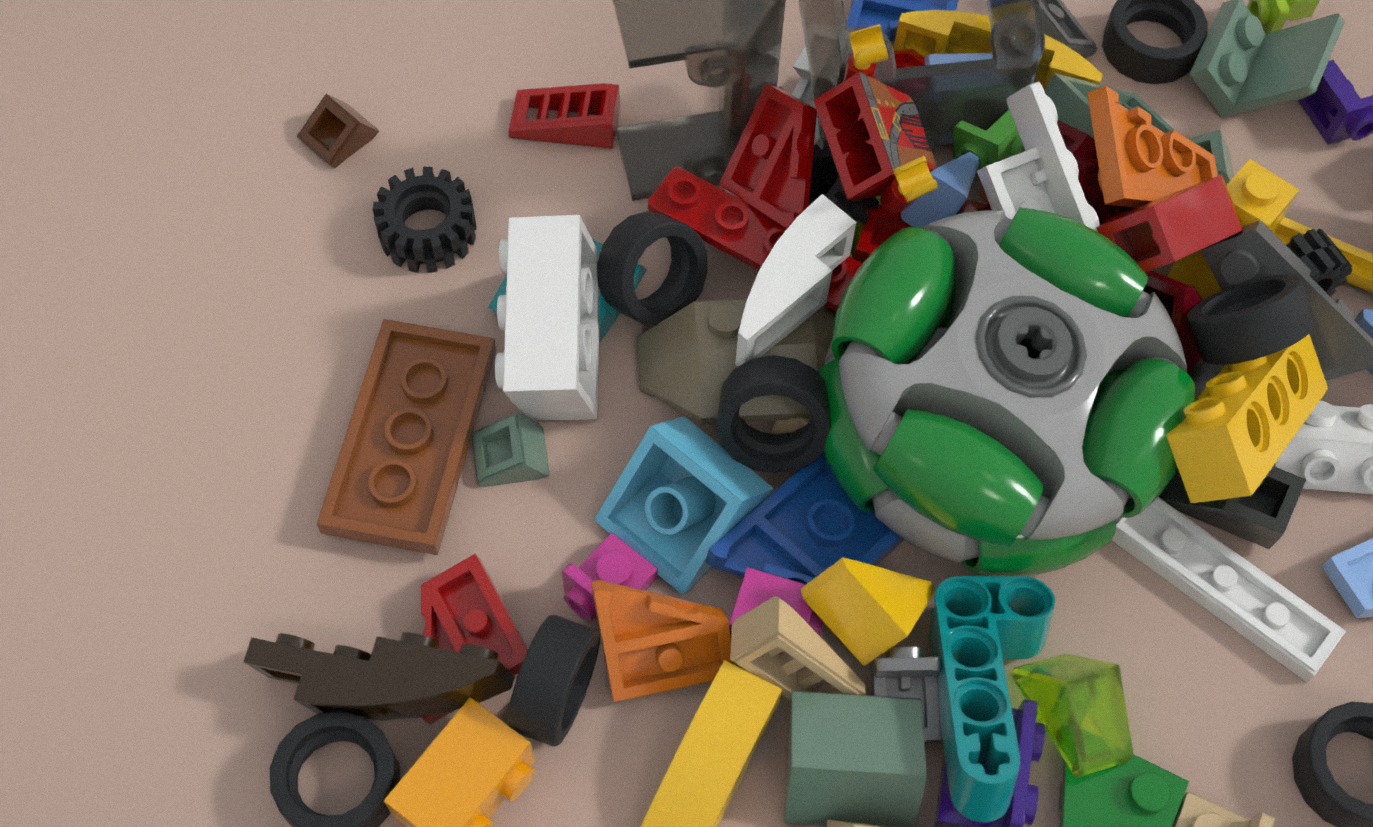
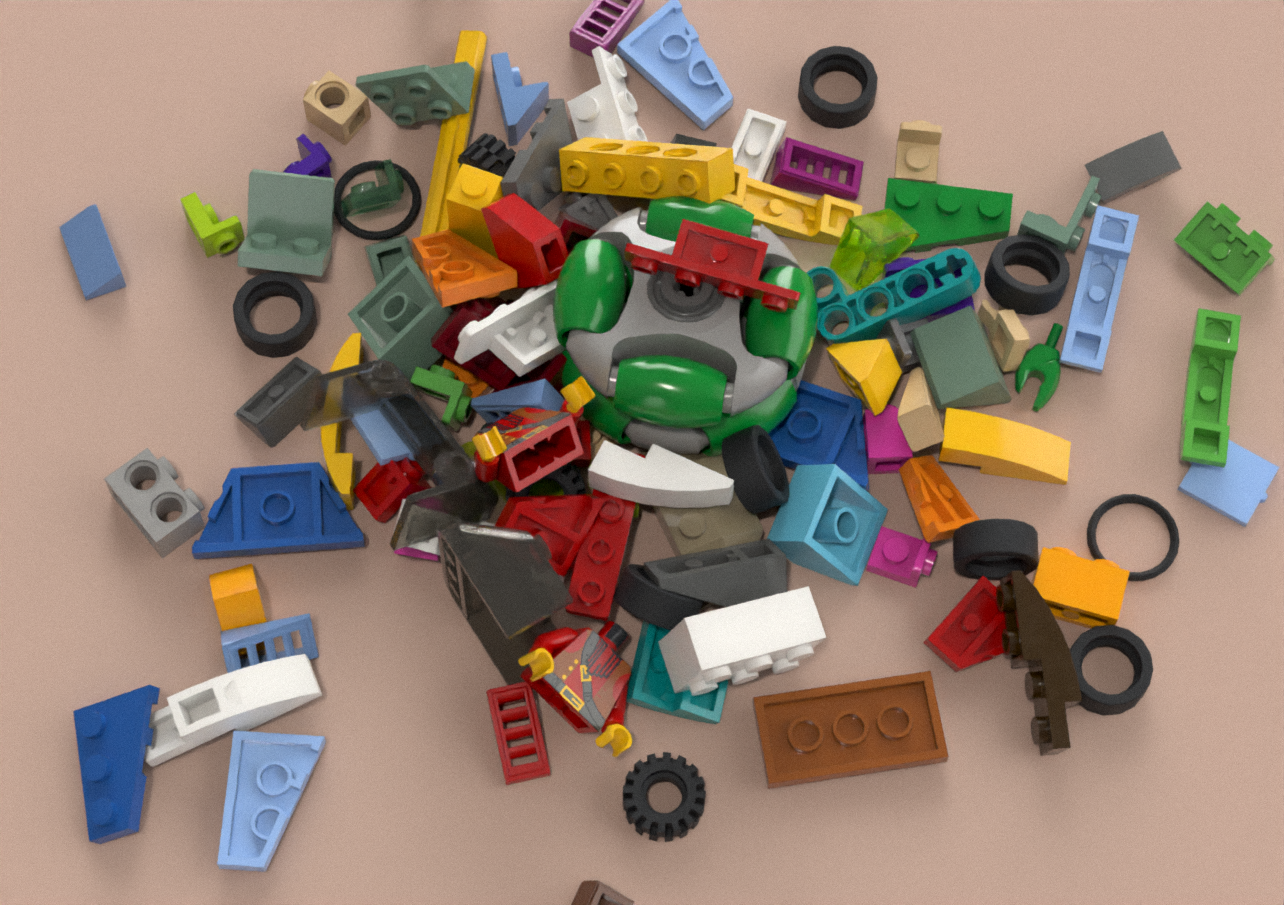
camera: 110 degrees left, 5 degrees up
(510, 452) = (833, 661): sand green slope -> none
(592, 164) = (583, 680): none -> torso
(647, 344) = (724, 574): none -> dark grey slope
(1052, 374) = (716, 259): none -> red bracket
(1175, 601) = (790, 212): none -> yellow slope
(1246, 647) = (799, 180): none -> magenta slope
(1251, 319) = (558, 188): black tyre -> none
(1292, 156) = (369, 198): none -> clear green bracket
(1315, 144) = (376, 235): none -> black tyre

